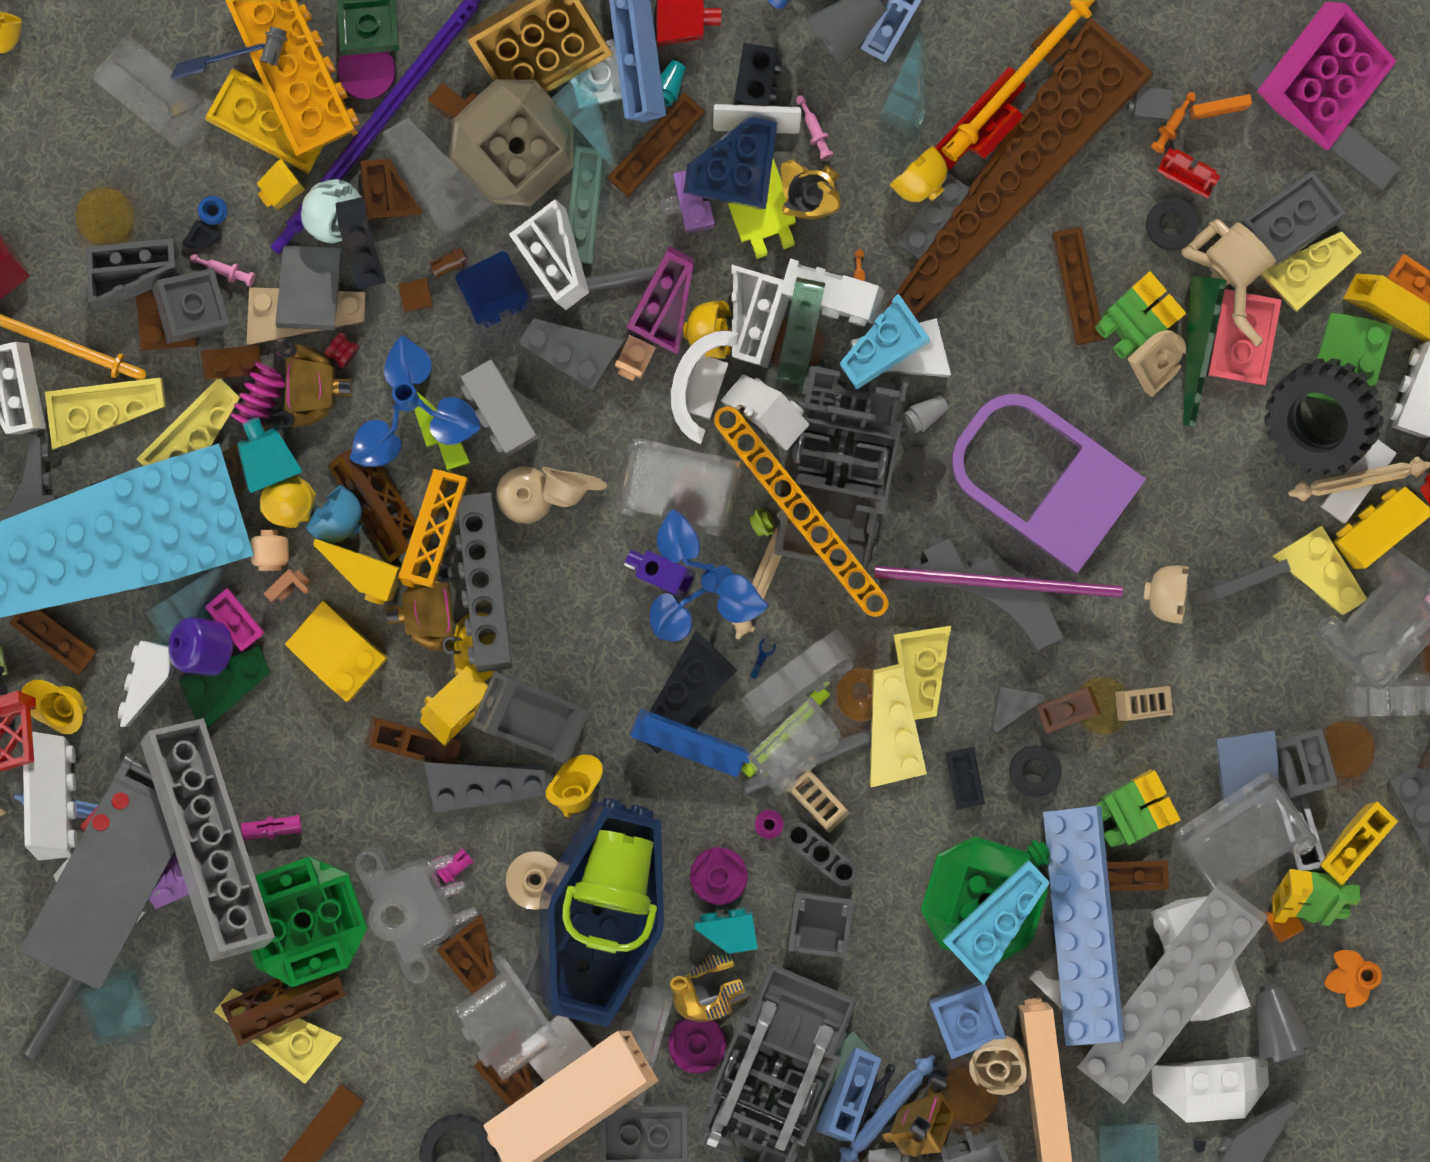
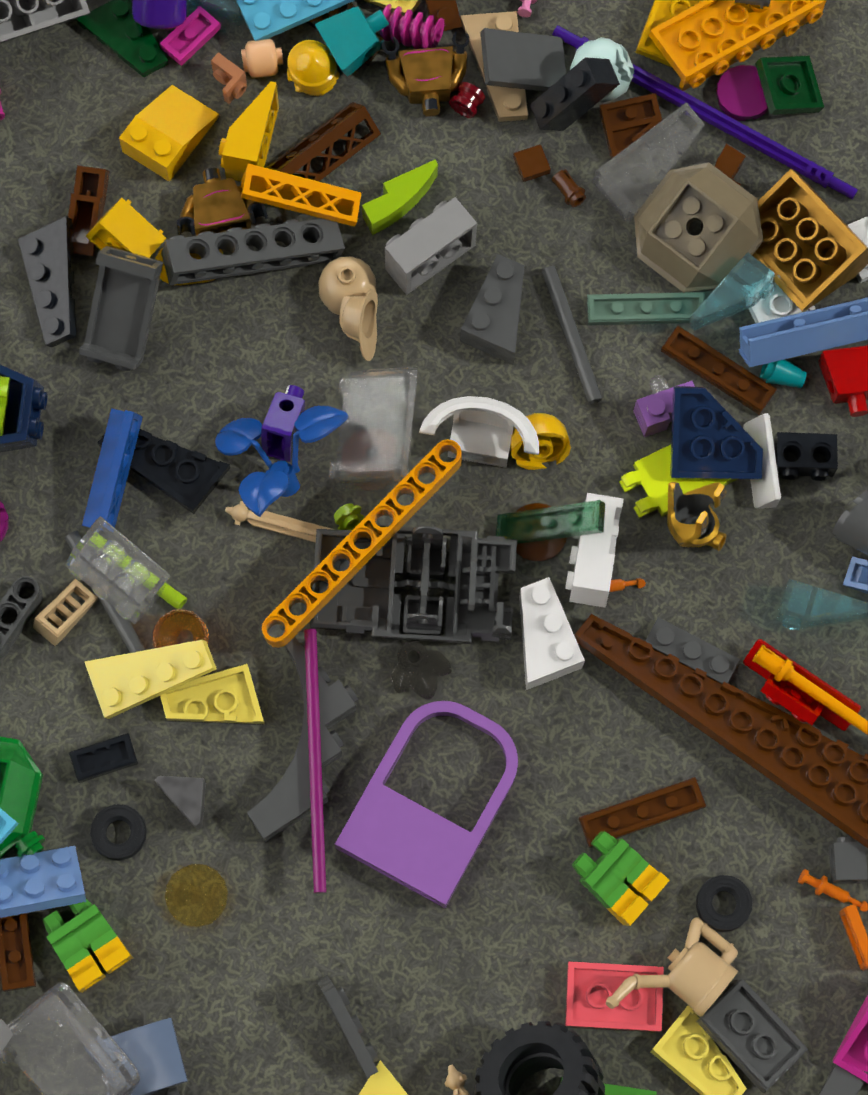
camera: 75 degrees right, 15 degrees down
(279, 186) = (620, 22): yellow slope -> none
(337, 517) = (301, 112): dark azure cylinder -> none
(404, 366) = (409, 202): blue plant -> none
(493, 289) = (547, 231): clear blue bracket -> none
(552, 253) = (592, 277): white wedge -> none
(574, 784) = (55, 364): yellow piece -> none
(634, 358) = (499, 374): light nougat bracket -> none
(664, 302) = (562, 389): magenta wedge -> none
(756, 315) = (557, 481): white wedge -> none
(761, 659) = (209, 536): clear blue hand -> none
(767, 411) = (462, 497): white wedge -> none
(769, 814) = (38, 572): magenta plate -> none
(802, 675) = (195, 575): clear wedge -> none
(818, 136) = (754, 525): bright pink piece -> none
(885, 344) = (551, 610): medium azure wing -> none
(922, 177) = (730, 628): yellow cylinder -> none
(924, 414) = (484, 668): light grey cone -> none
(1068, 709) = (187, 856): reddish brown plate -> none
(1124, 704) = (197, 914): tan slope -> none
(1158, 360) = (575, 903): tan tile -> none
(1168, 593) = (325, 948): tan cylinder -> none
(1176, 167) = (777, 924): red hinge -> none
(1203, 315) = (640, 944): dark green wedge -> none

